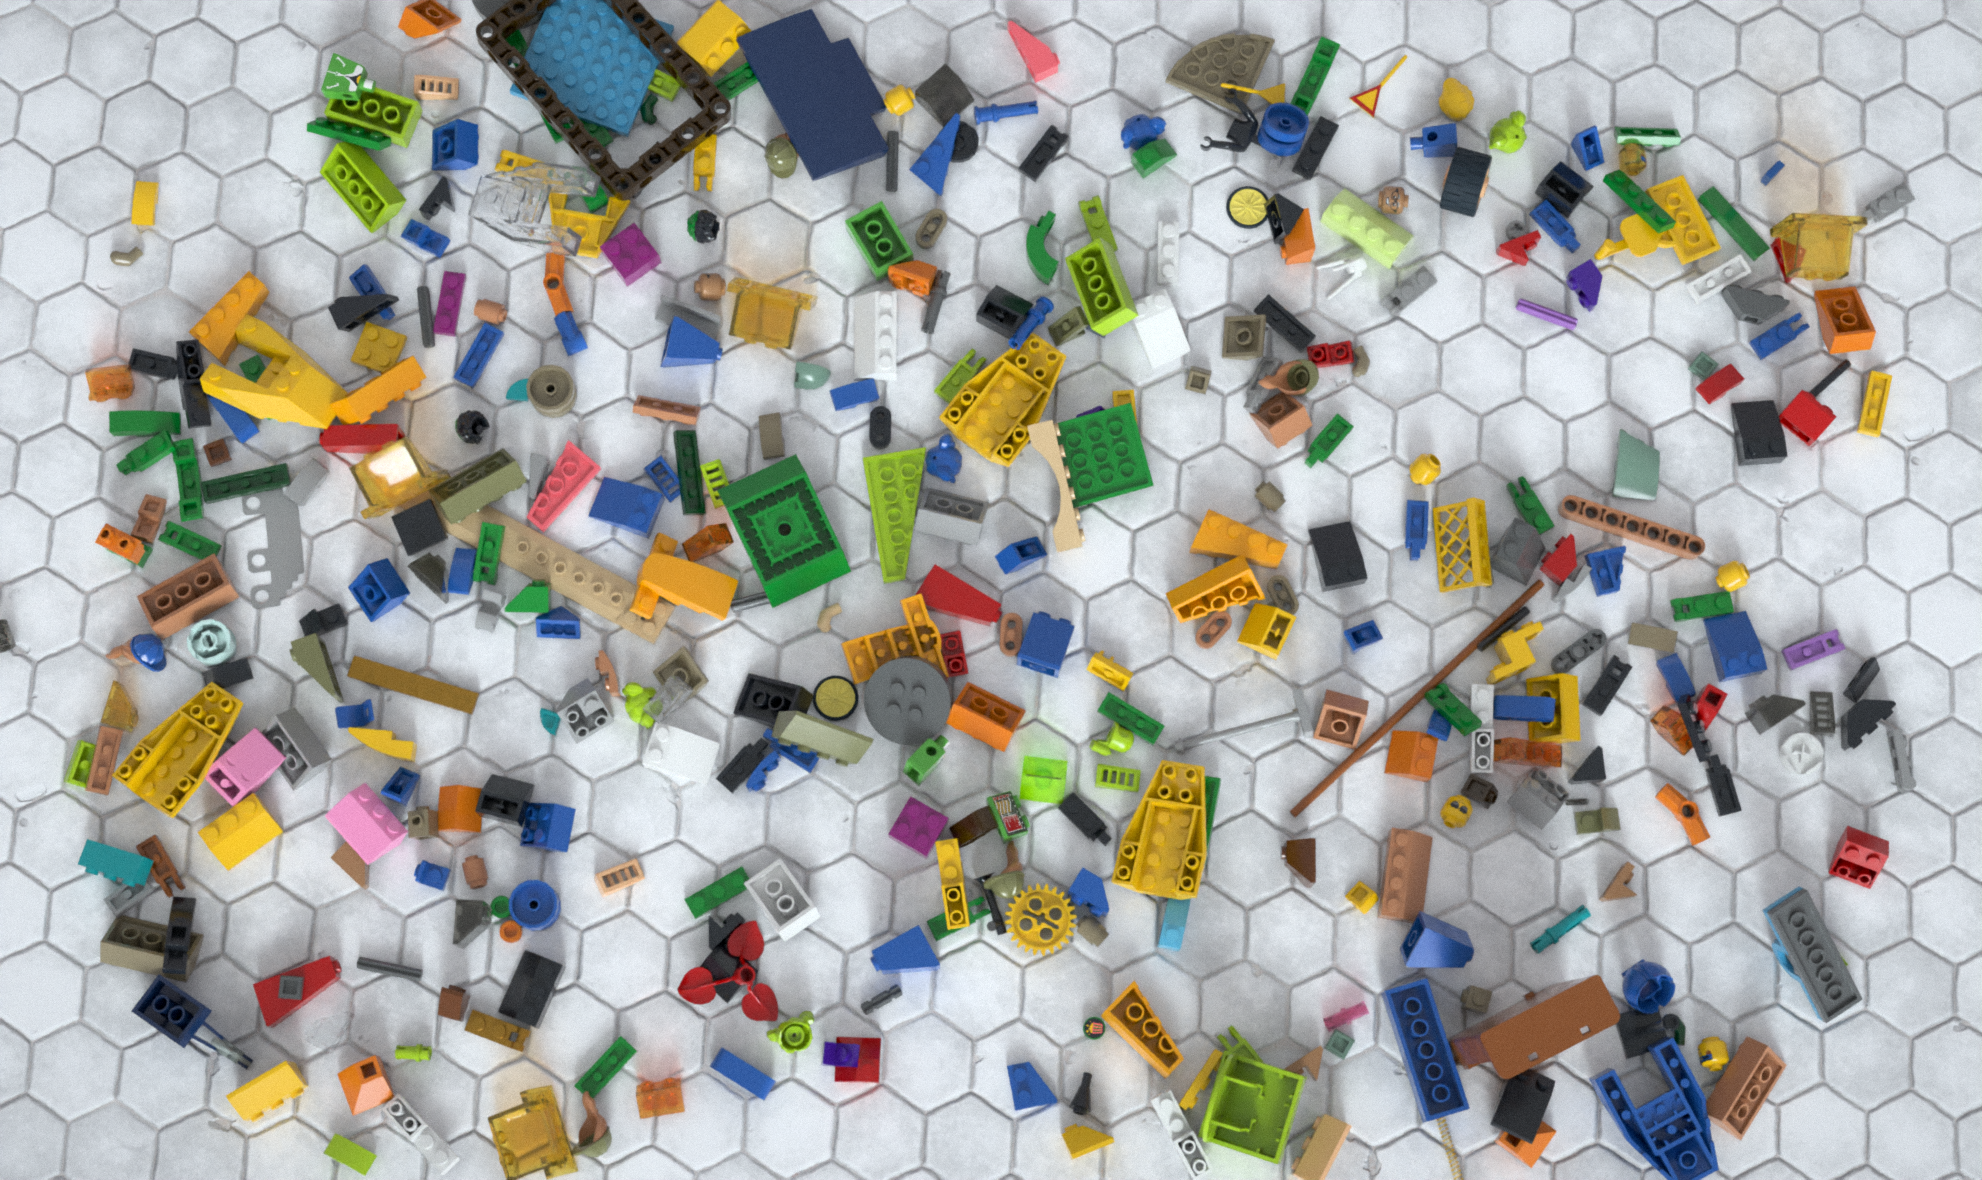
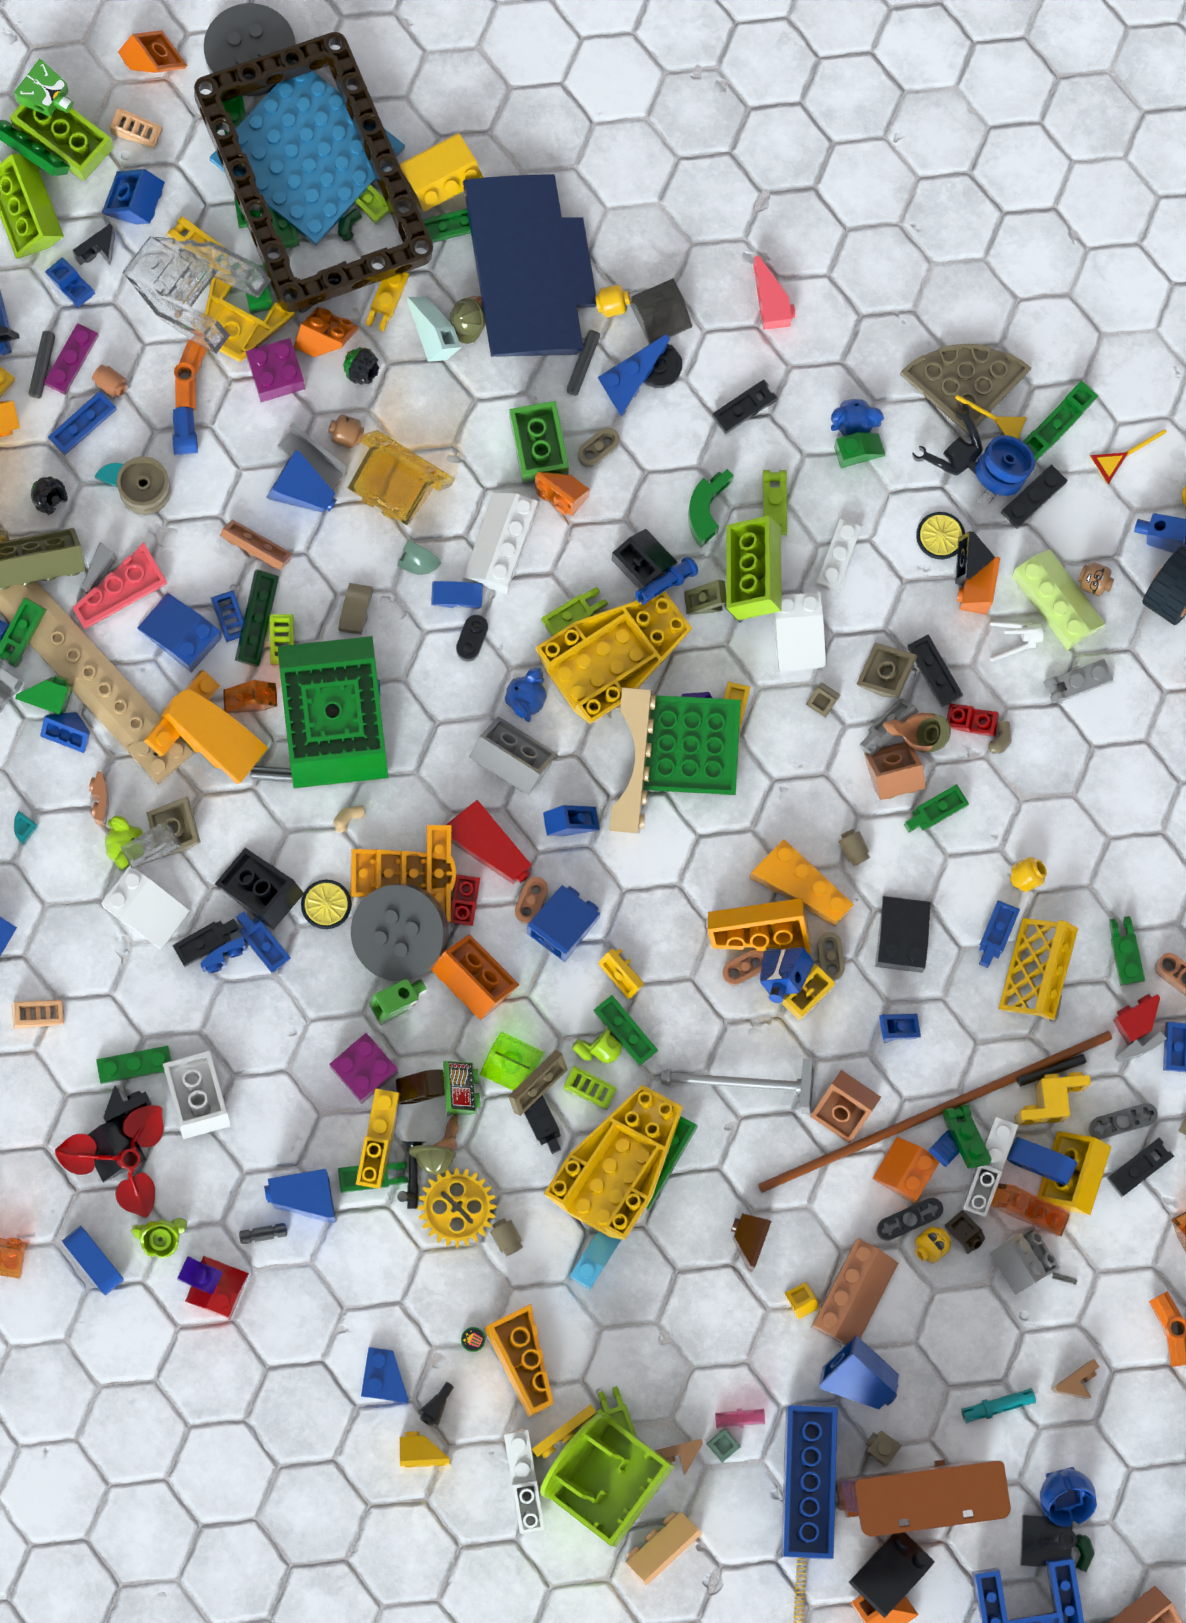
camera: 15 degrees right, 0 degrees up
(583, 711) = (60, 829): light grey slope -> none
(661, 209) = (323, 333): none -> orange slope
(756, 175) = (434, 329): none -> light aqua slope
(820, 737) = (293, 939): slope -> none
(893, 496) = (459, 715): lime wing -> none
(937, 292) = (580, 519): dark grey pin -> none
(995, 112) = (709, 347): blue pin -> none
(1072, 789) = (537, 1083): none -> dark tan tile
(1089, 891) = (516, 1194): blue slope -> none
(1250, 622) = (785, 972): none -> blue torso
(1413, 803) = (896, 1232): none -> black beam
(1518, 552) = (1095, 995): dark grey slope -> none
(1591, 770) = (1091, 1250): black slope -> none
(1597, 821) = (1078, 1305): olive slope -> none
(1713, 1053) = (1113, 1591): yellow head -> none

